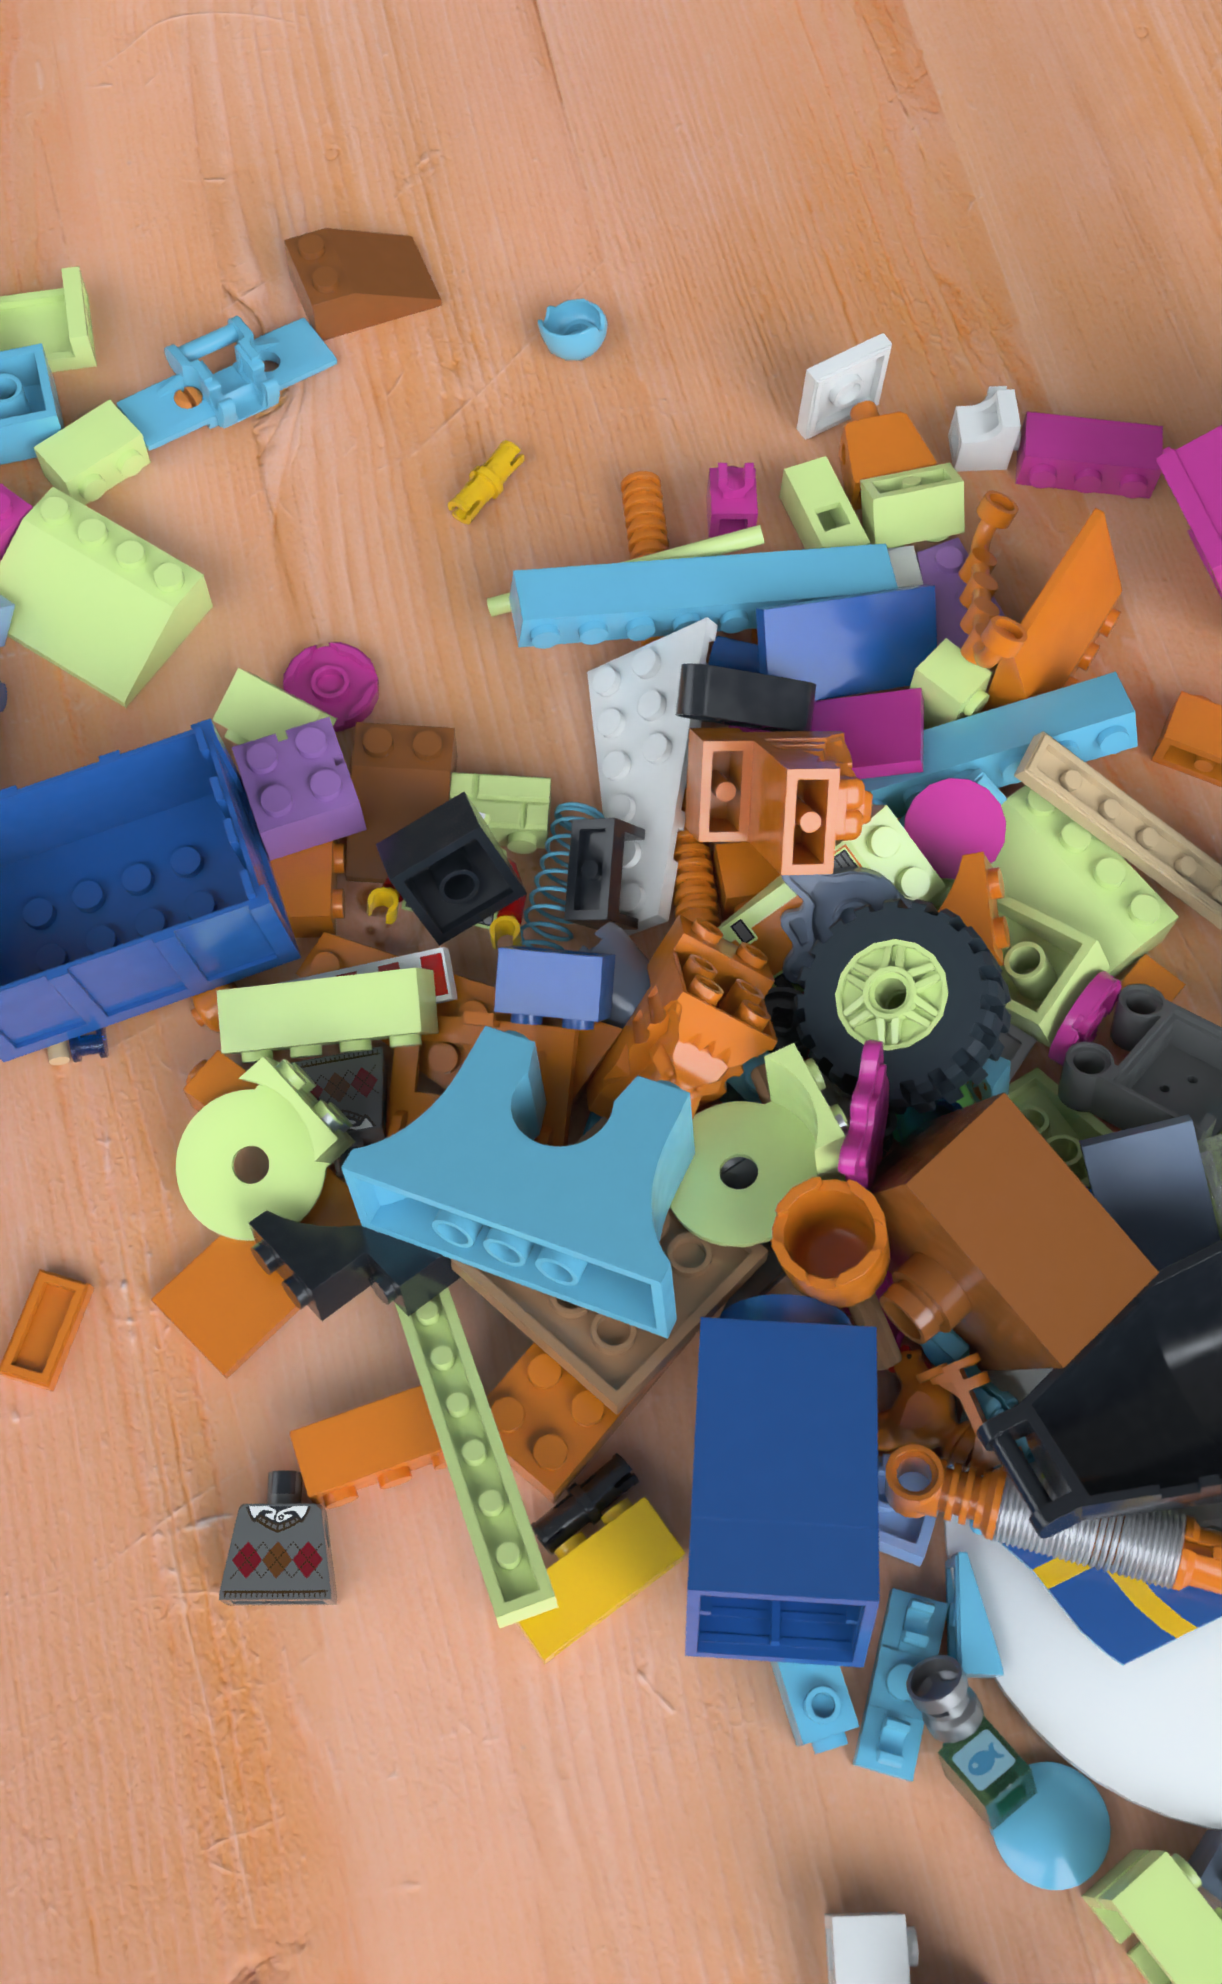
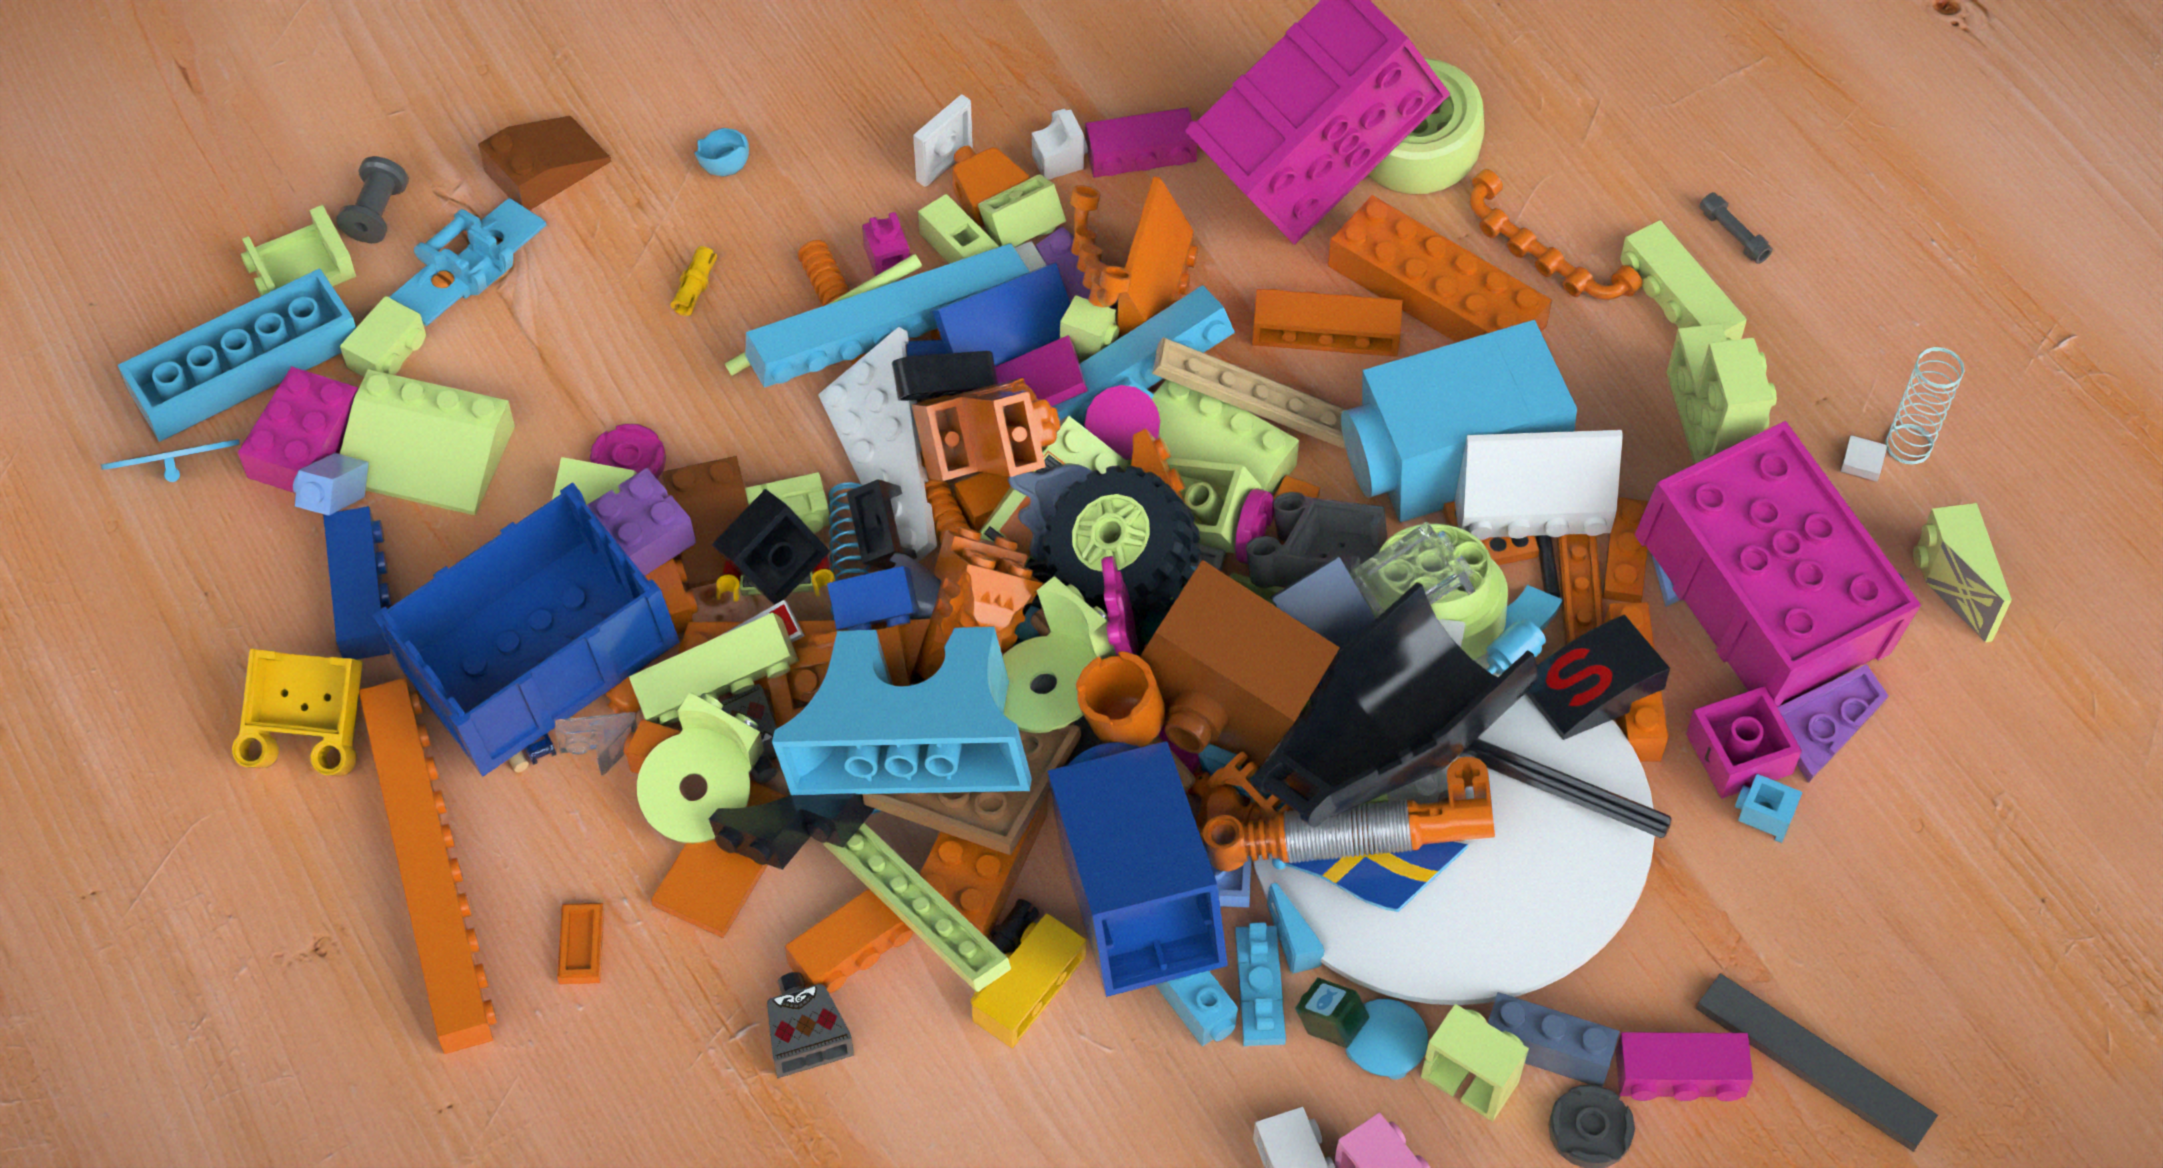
camera: 15 degrees left, 10 degrees down
(160, 256) = (380, 181): none -> dark grey piece
(169, 1051) = (598, 733): none -> clear slope
(943, 1696) = (1290, 975): flat silver wheel -> none

